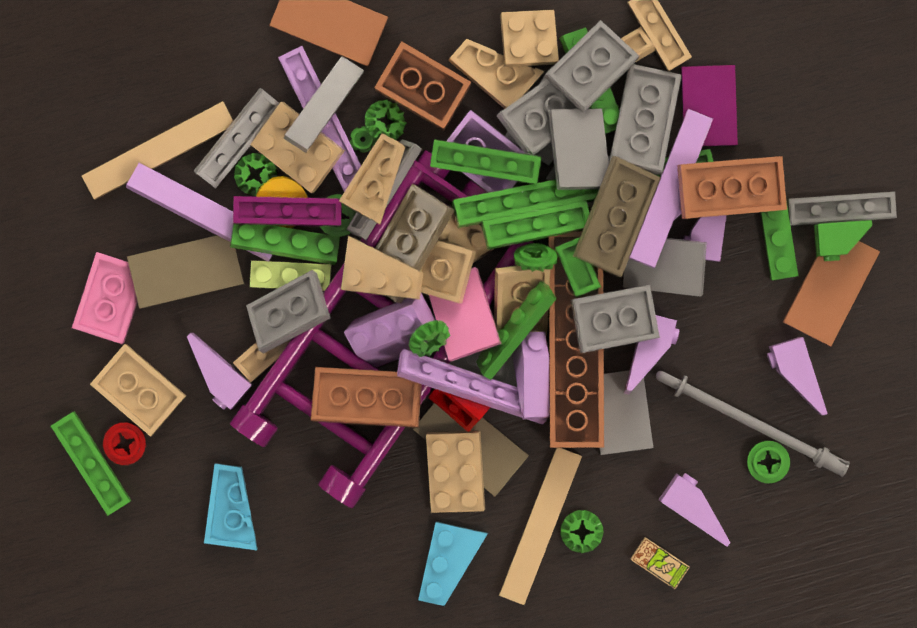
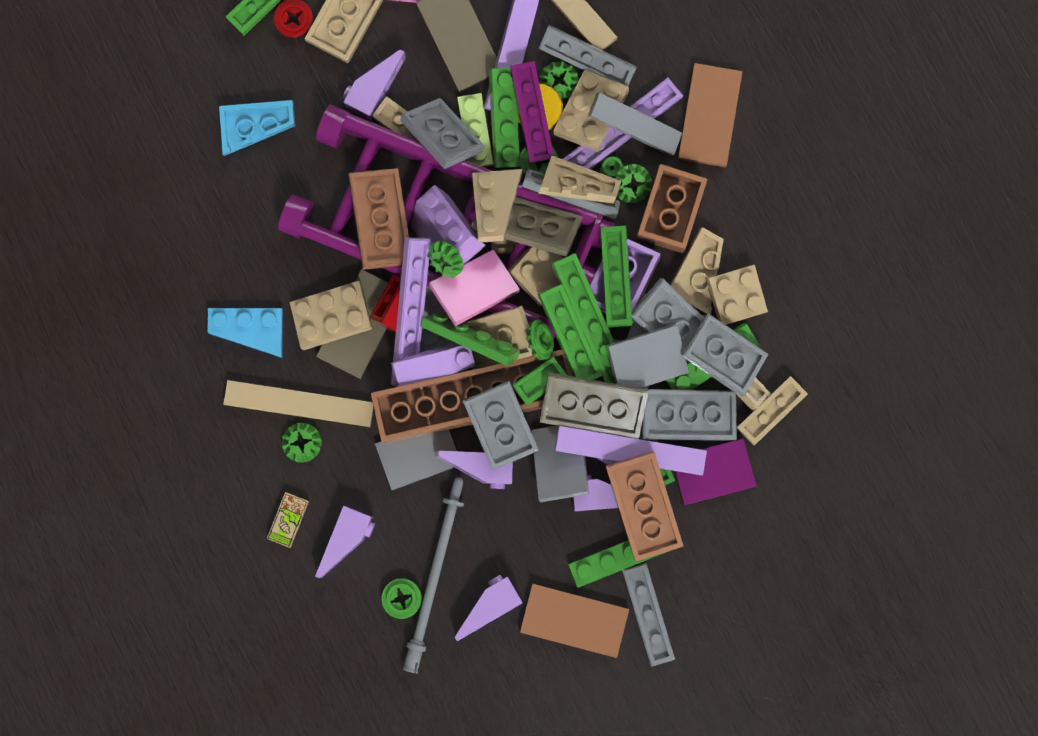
camera: 75 degrees right, 5 degrees down
(447, 271) = (509, 263): tan plate -> none
(838, 238) = (620, 615): bright green slope -> none

